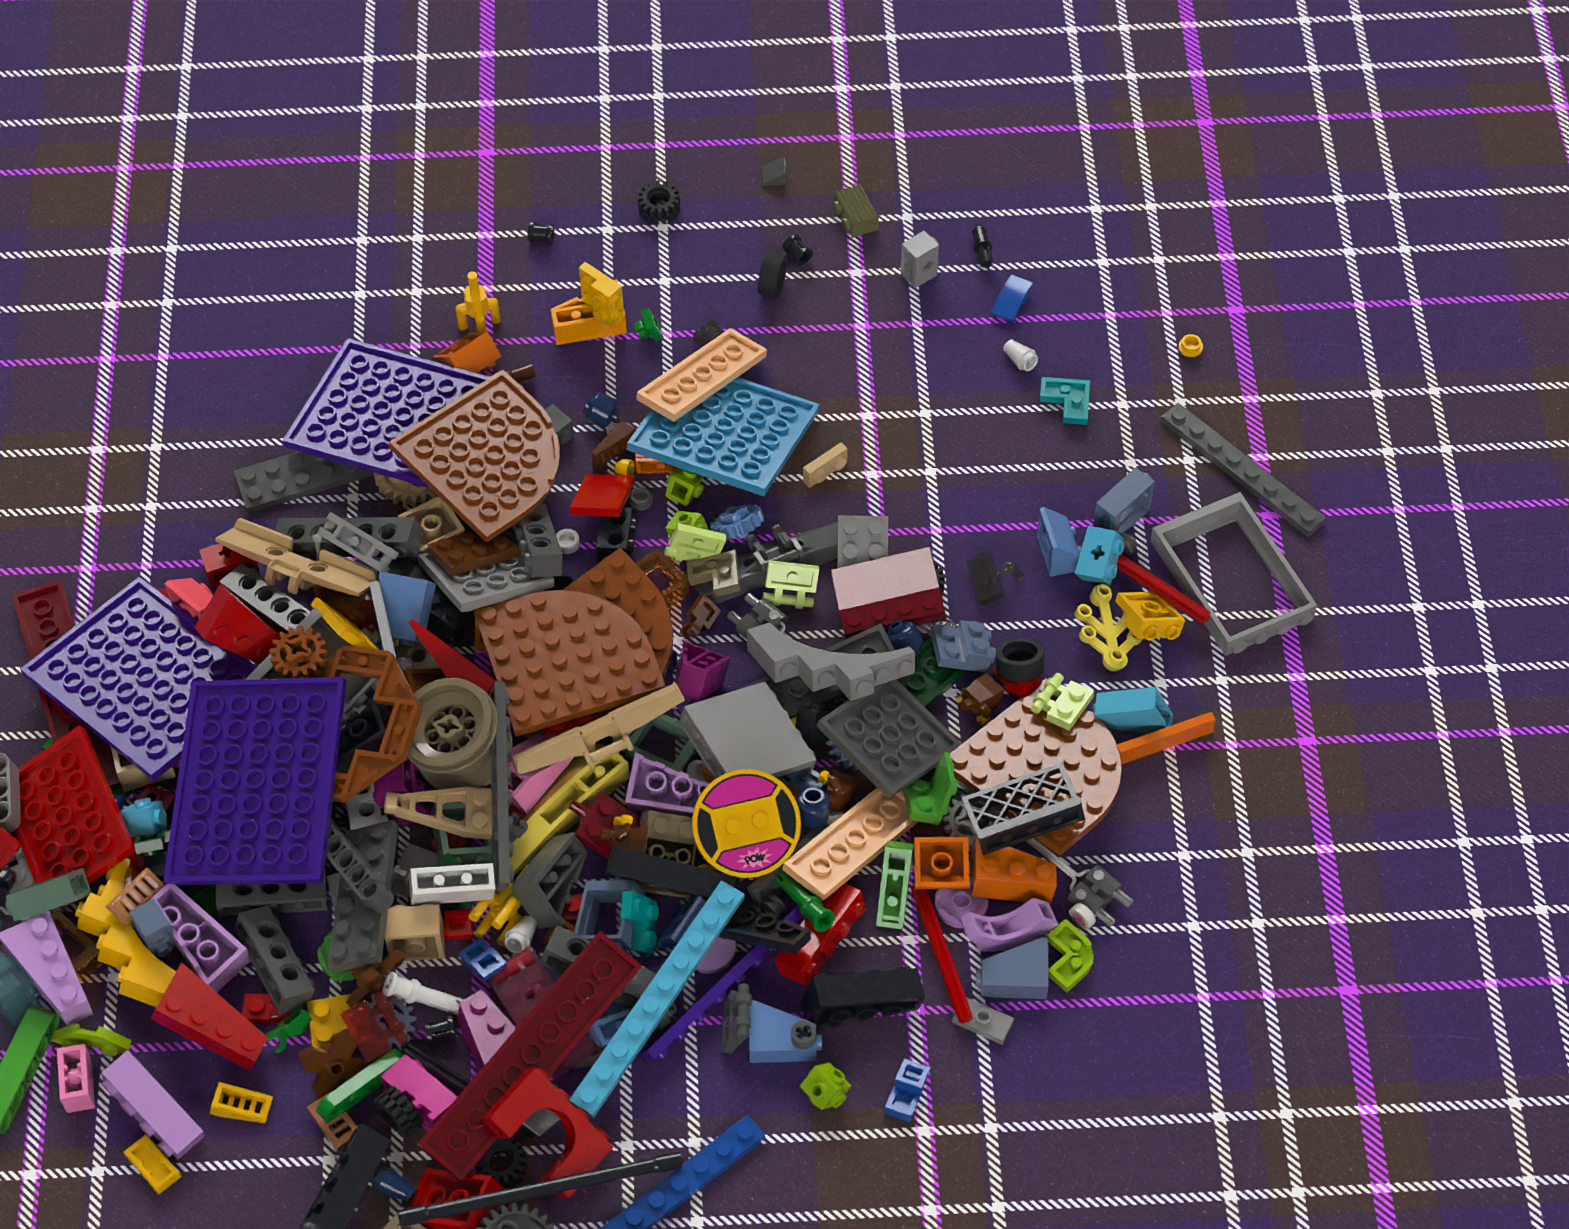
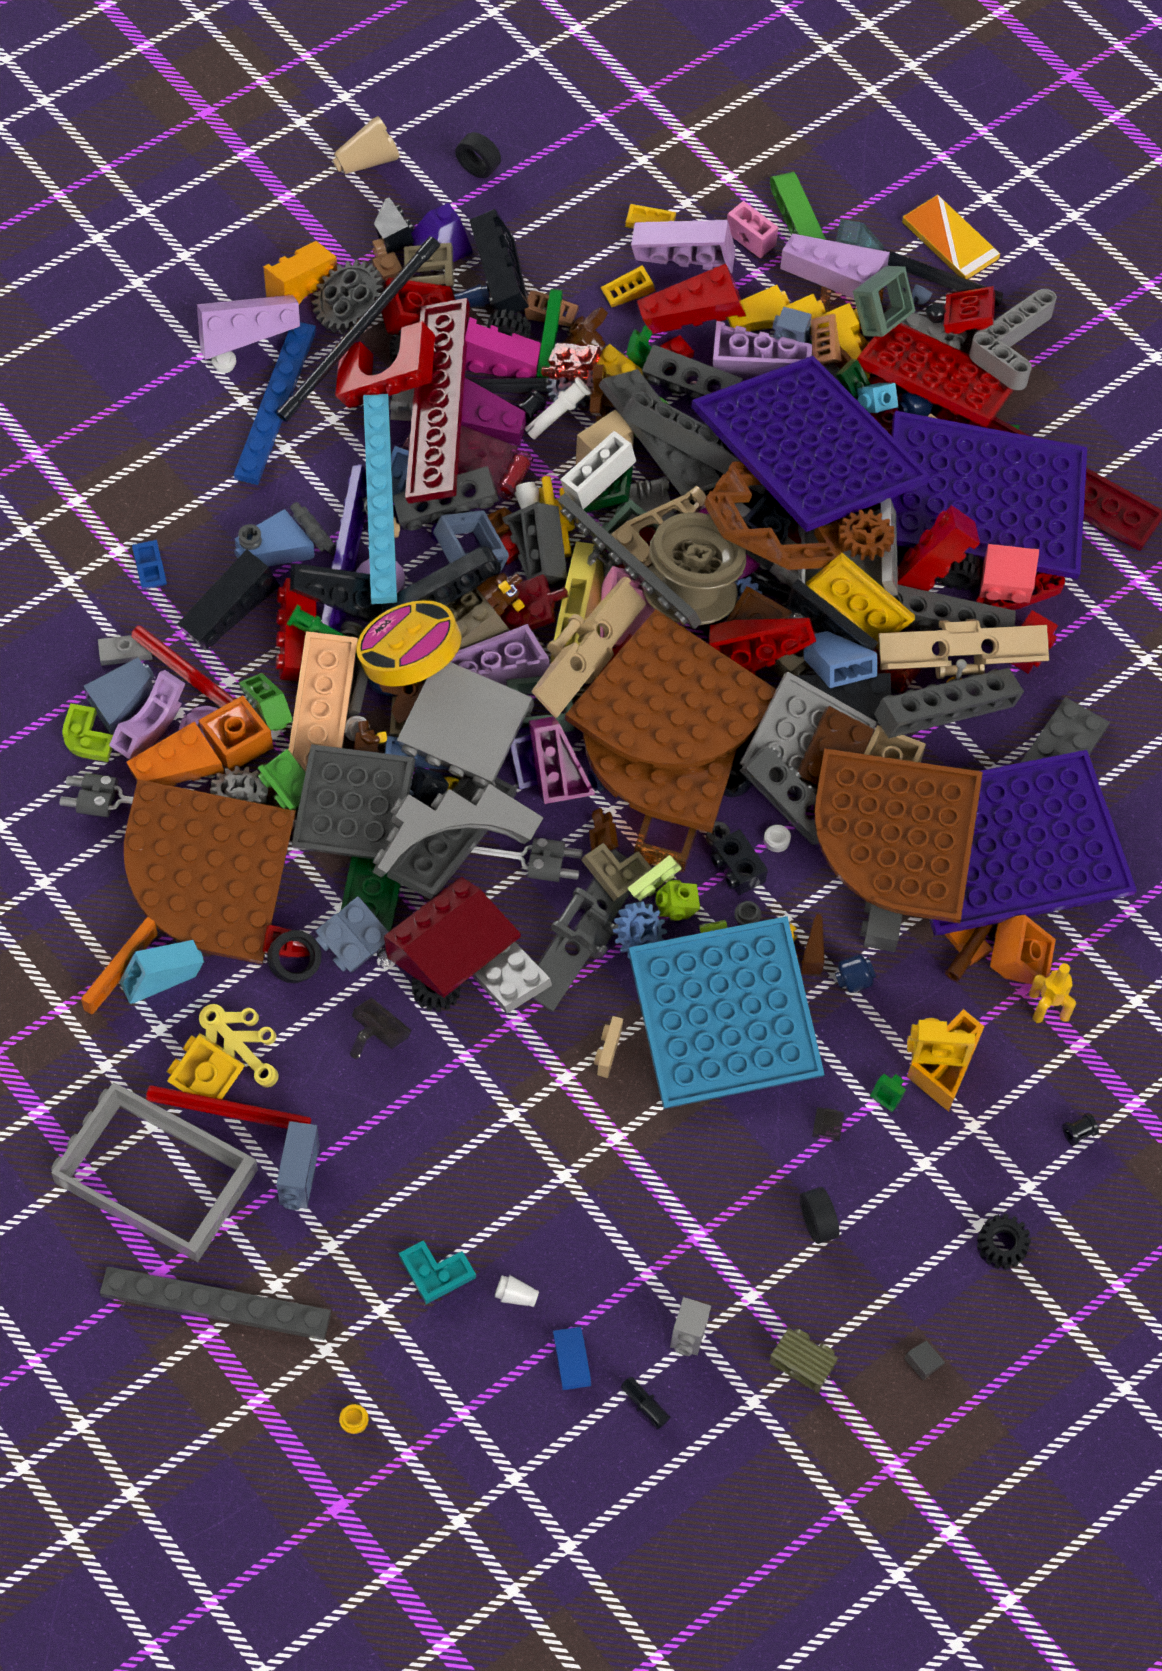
camera: 140 degrees right, 5 degrees up
(103, 1039) = (760, 255): lime plate -> none
(357, 543) = (924, 677): light grey plate -> none
(482, 959) = (534, 462): blue slope -> none
(602, 495) = (776, 879): red tile -> none
(643, 914) = (442, 547): teal plate -> none
(681, 920) = (409, 564): dark blue plate -> none
(701, 374) = (790, 1053): light nougat plate -> none
(793, 577) = (553, 895): yellowish green plate -> none
(797, 249) = (823, 1273): black bush -> none
(813, 807) = (372, 706): dark blue head -> none
(826, 1086) = (209, 523): lime brick -> none
(905, 635) = (404, 901): dark blue head -> none
(981, 697) = (307, 902): reddish brown piece -> none
(1028, 823) = (171, 777): black fence -> none
(1057, 542) = (336, 1092): medium blue slope -> none
(1067, 707) = (218, 930): yellowish green plate -> none
(1082, 916) = (95, 766): white tile -> none
(1099, 555) = (286, 1097): medium azure brick -> none
(1129, 544) = (276, 1139): dark grey bush -> none

